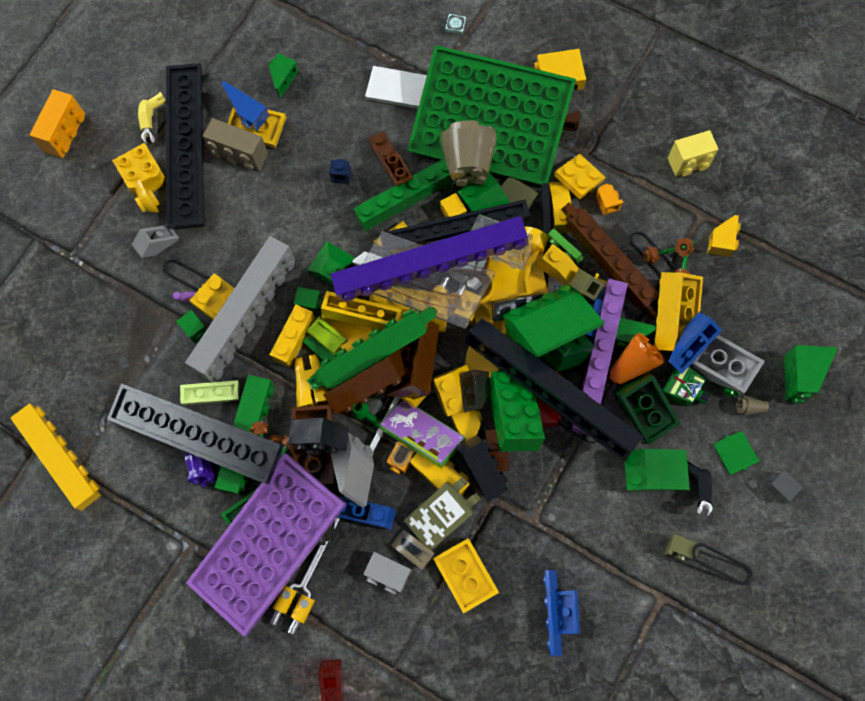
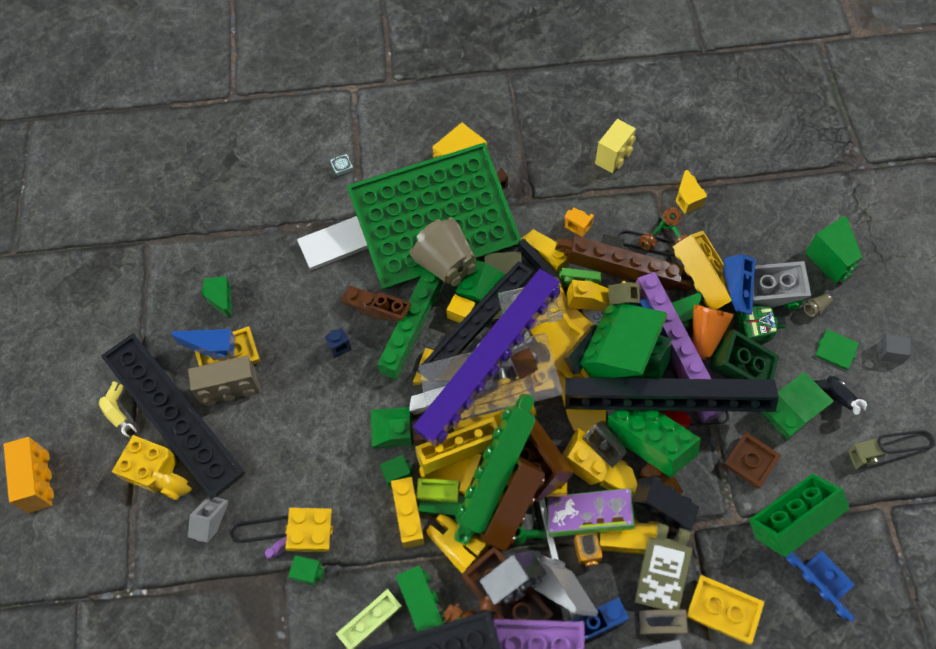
camera: 40 degrees left, 10 degrees down
(241, 310) = (343, 524): light grey brick -> none
(454, 283) = (524, 363): none -> reddish brown slope
(579, 176) = (541, 218): yellow plate -> none
(580, 551) = (799, 514): none -> green brick
(583, 486) = (752, 460): none -> reddish brown plate

